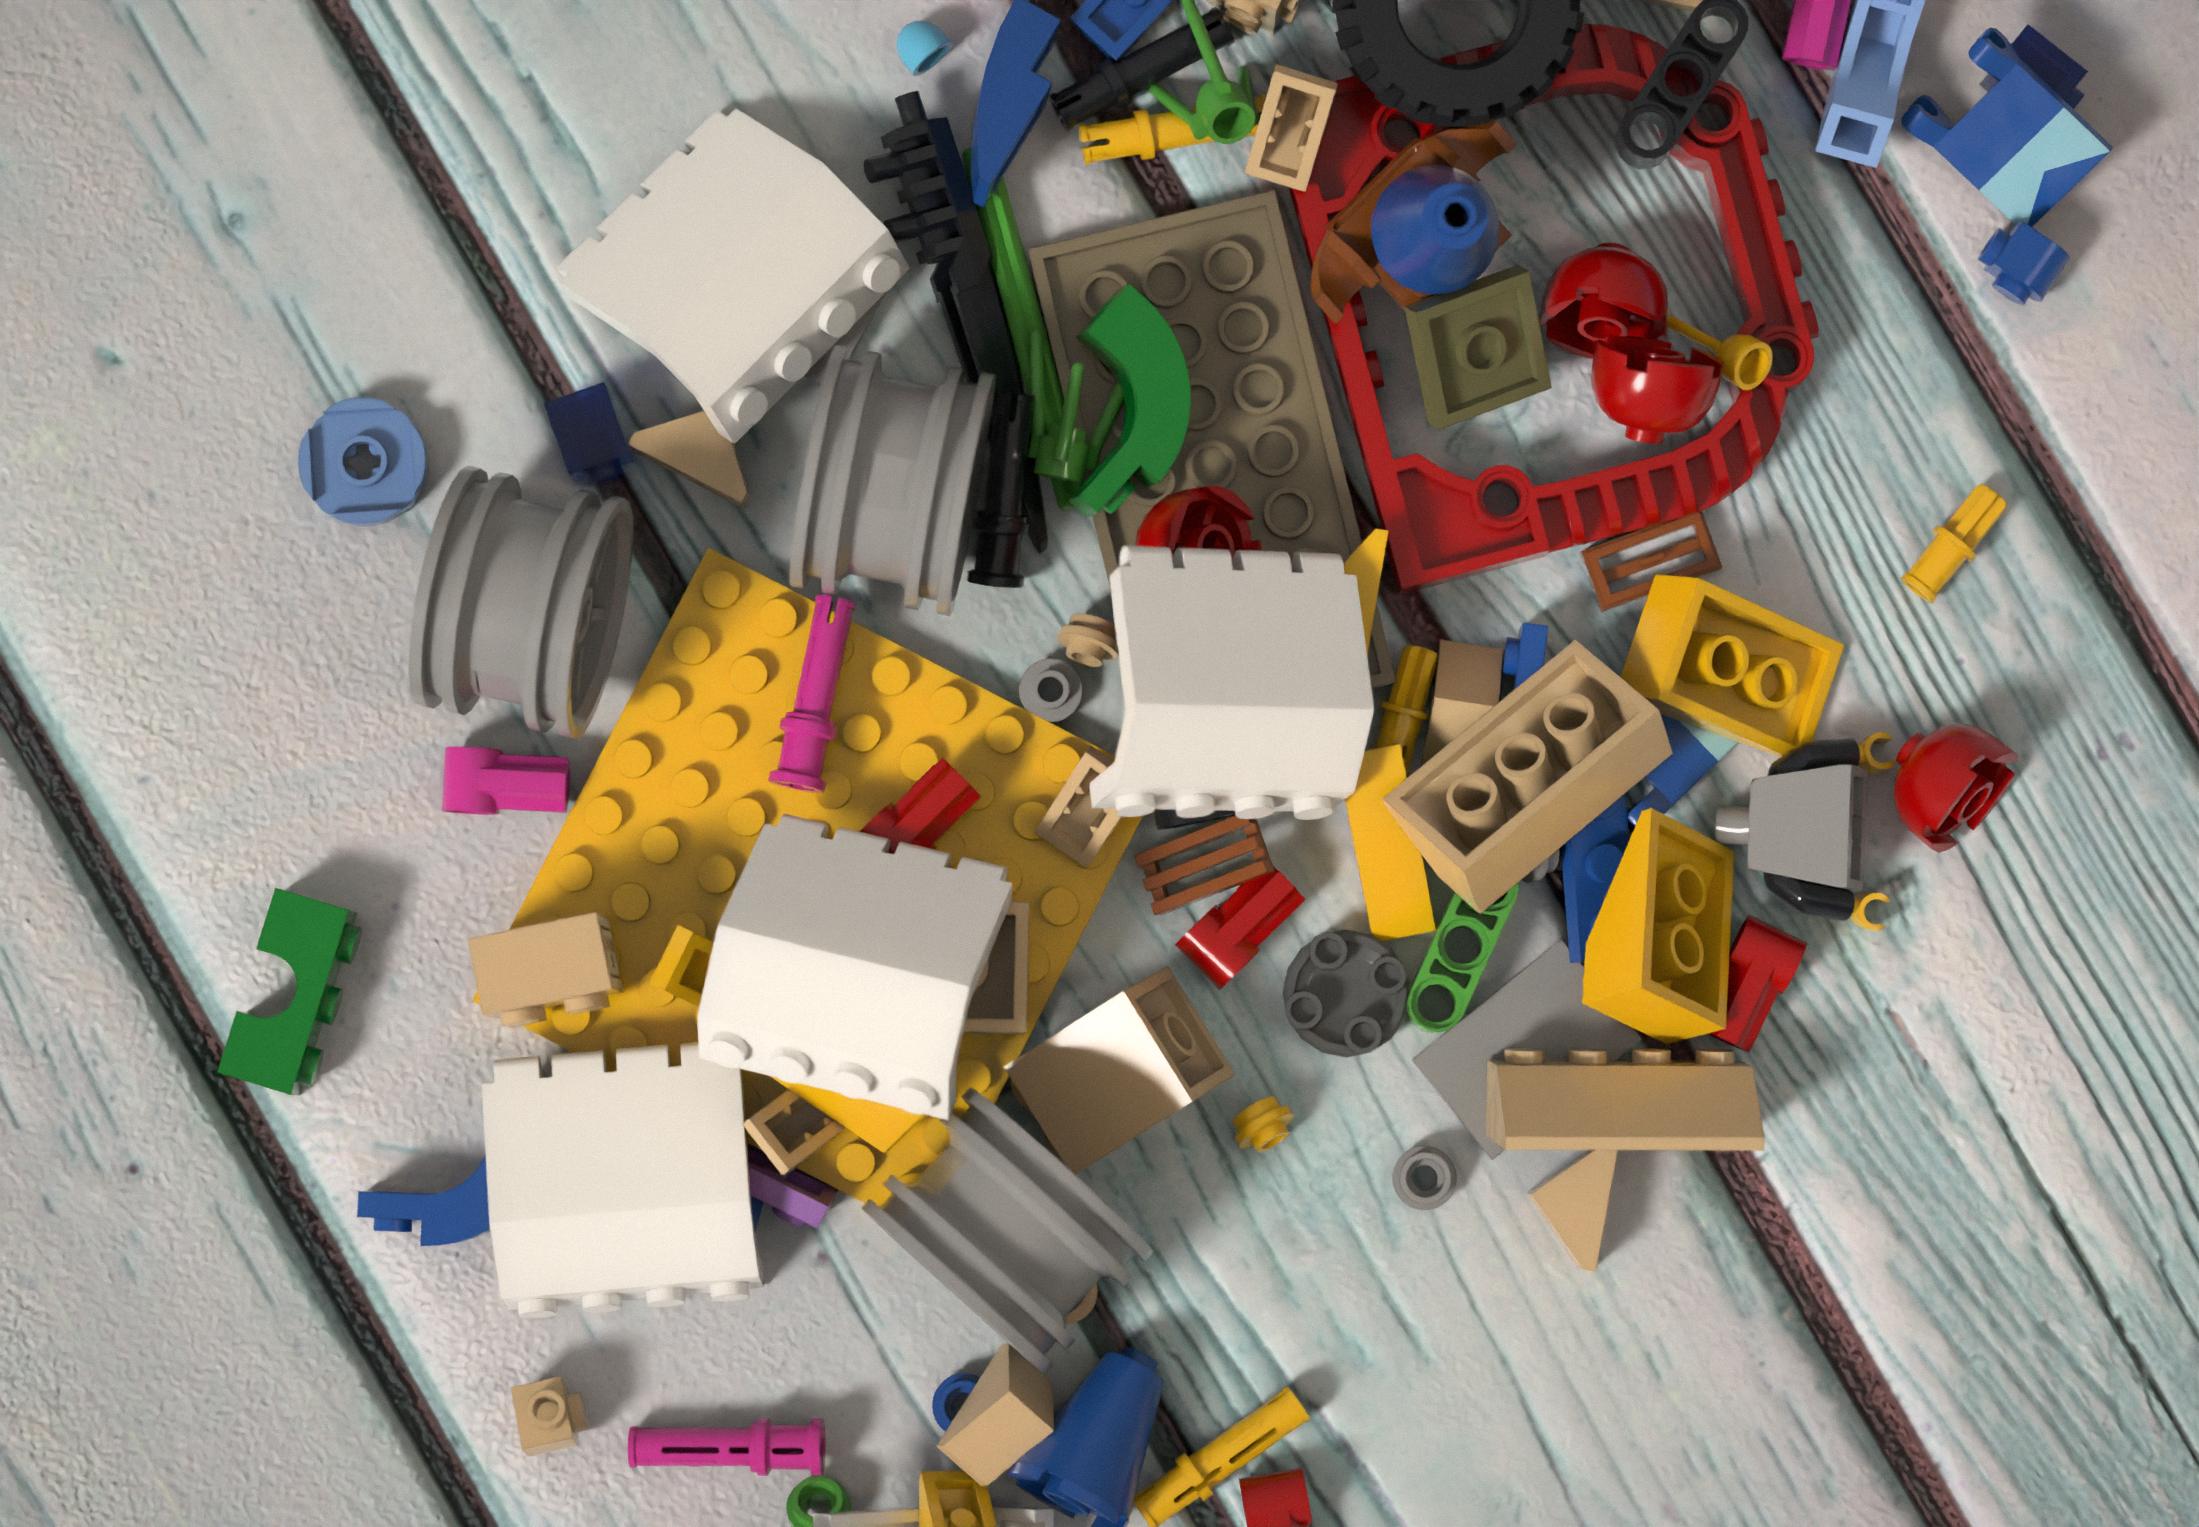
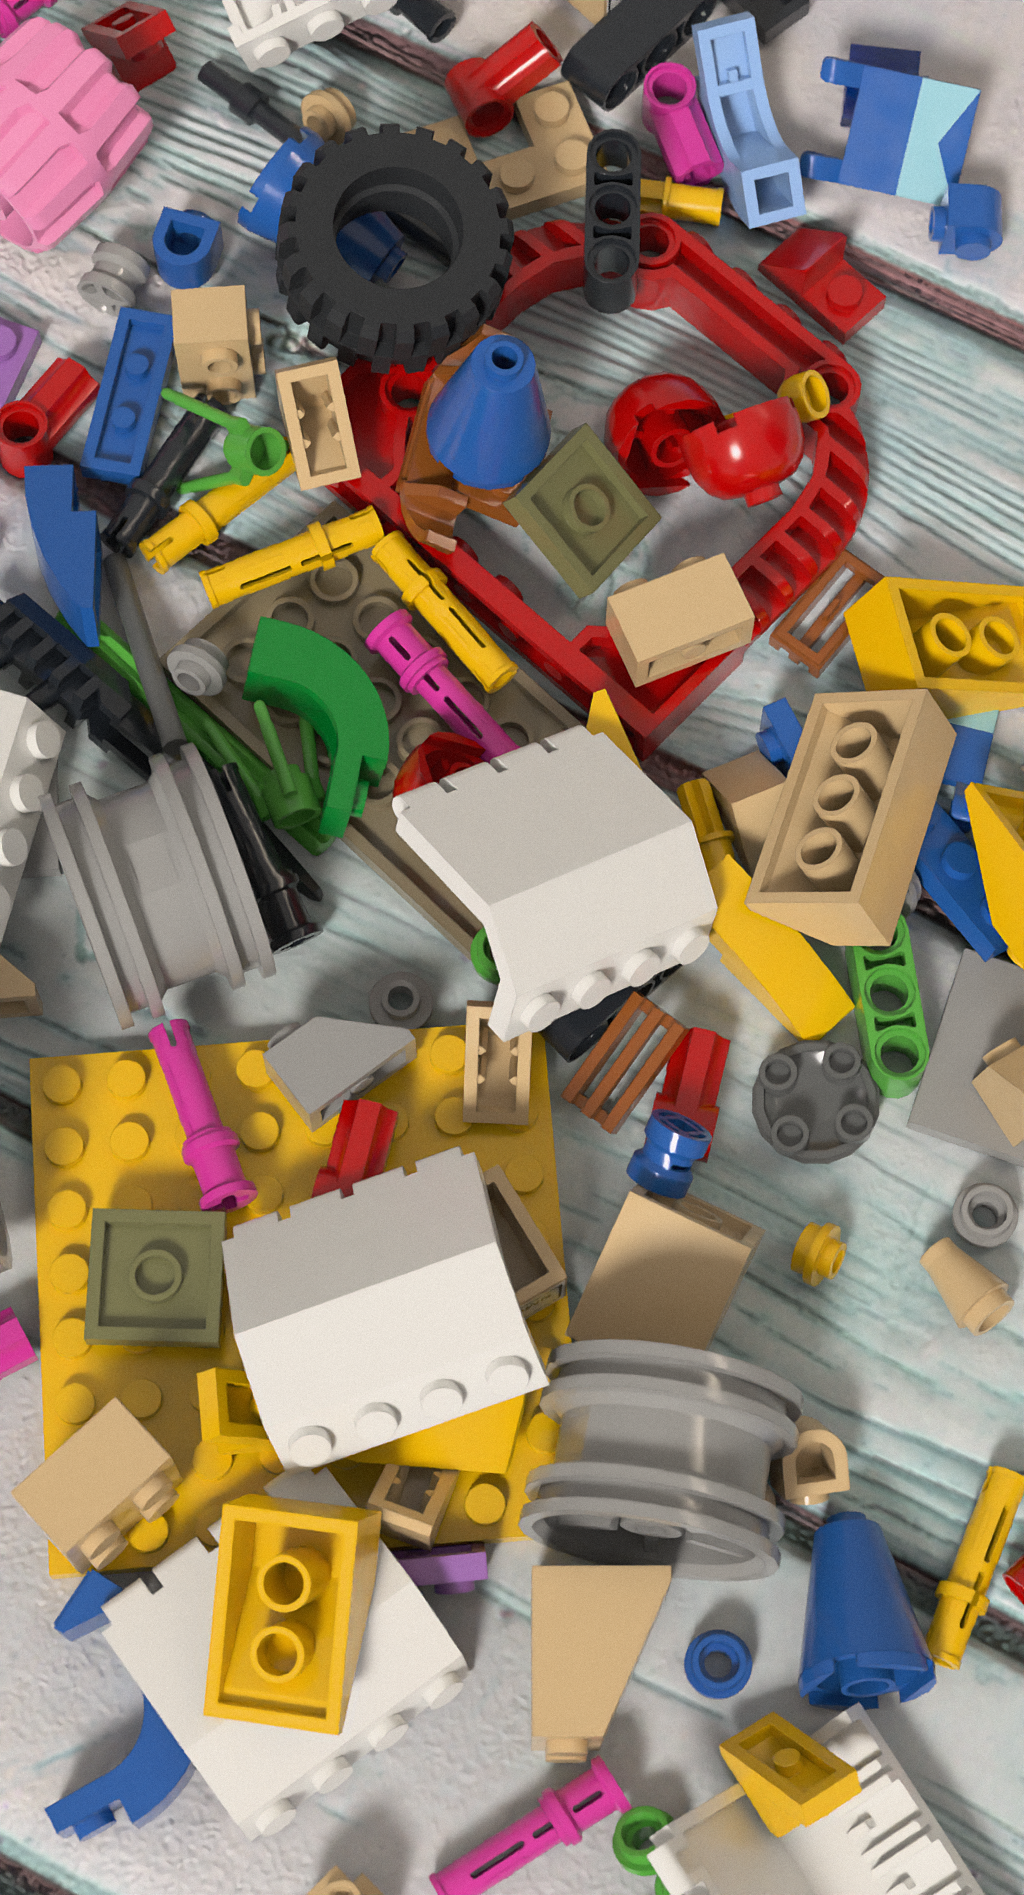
camera: 35 degrees left, 15 degrees down
(489, 1045) = (83, 1610): none -> blue slope
(636, 1166) = (289, 1611): none -> yellow slope
(698, 812) = (155, 1278): none -> olive plate
(856, 1335) = (584, 1650): none -> tan slope
(951, 719) = (334, 1062): none -> light grey slope
(1001, 1417) = (760, 1650): tan slope -> none
(1020, 236) = (144, 653): none -> dark grey bar
(1054, 285) = (198, 667): none -> light grey plate
(1089, 640) = (408, 940): tan plate -> none
(1144, 1299) = (813, 1468): none -> tan plate
(1189, 968) = (668, 1154): none -> blue wheel
(1190, 227) = (294, 556): none -> yellow pin
(1249, 411) = (430, 665): none -> dark pink pin
(1300, 361) = (427, 592): none -> yellow pin
(1367, 1230) = (967, 1287): none -> tan cone
(1492, 506) = (679, 618): none -> tan brick
(1768, 71) = (681, 201): none -> yellow axle
(1854, 236) = (819, 280): none -> red slope

